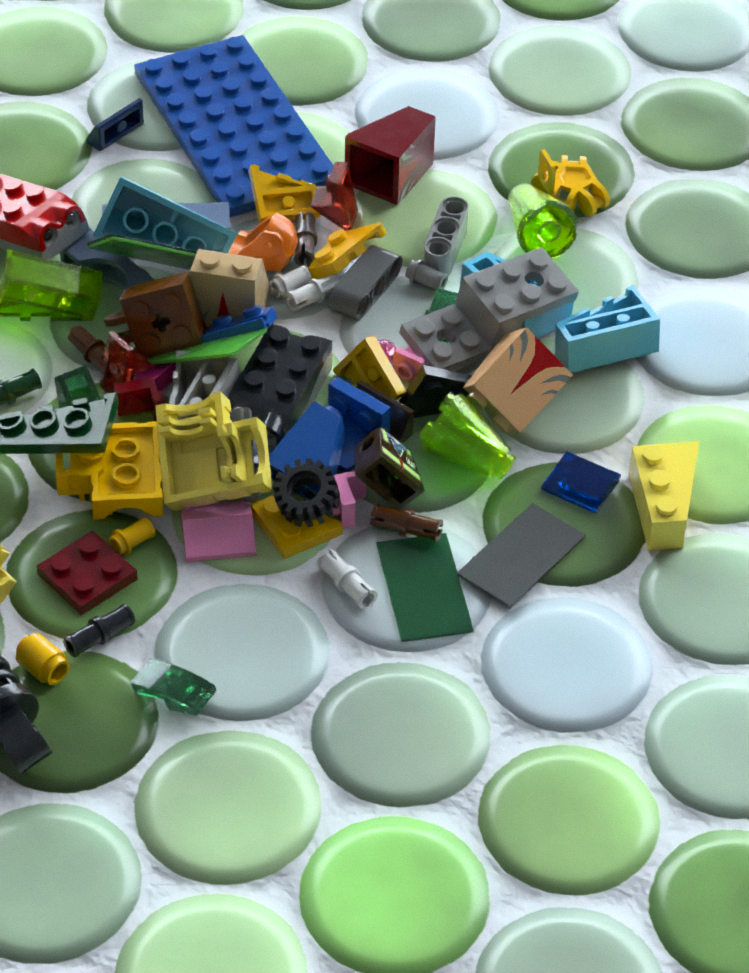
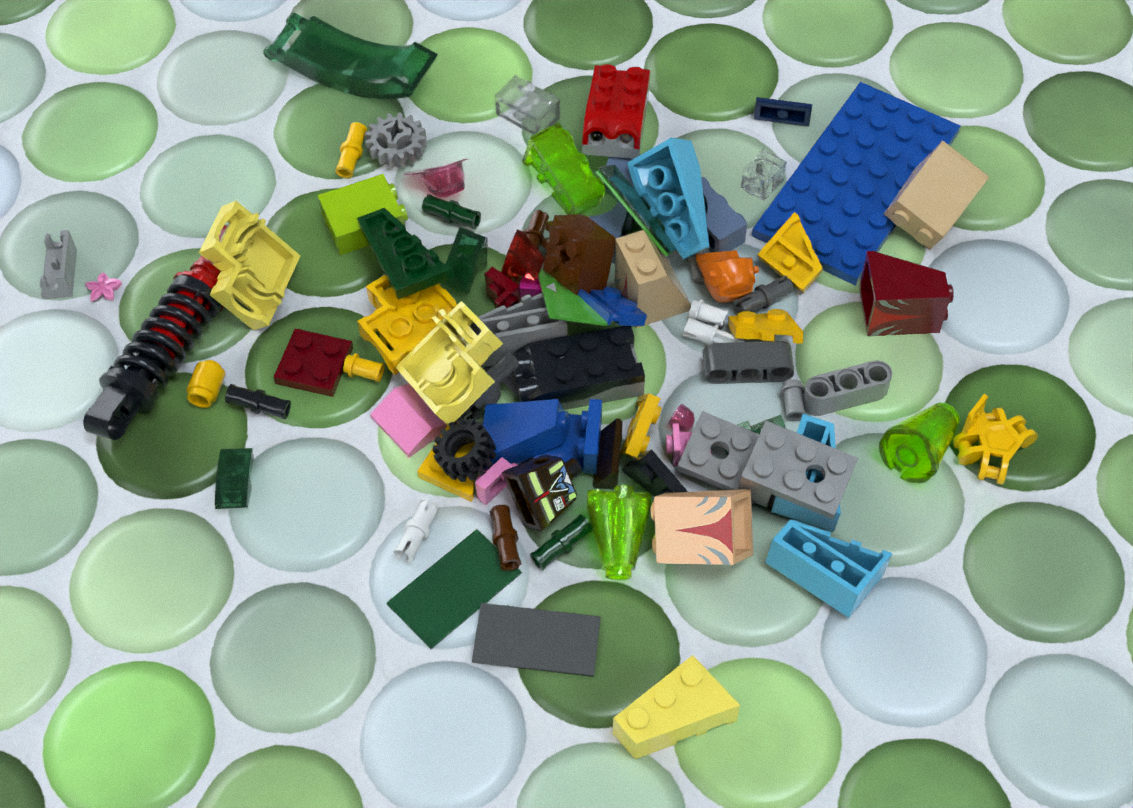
camera: 60 degrees right, 10 degrees up
(176, 171) = (763, 174): none -> clear brick
(312, 78) = (936, 195): none -> tan slope
(337, 198) = (818, 291): clear red slope -> none
(442, 488) = (561, 542): none -> dark green pin
(581, 482) = (651, 640): clear blue piece -> none

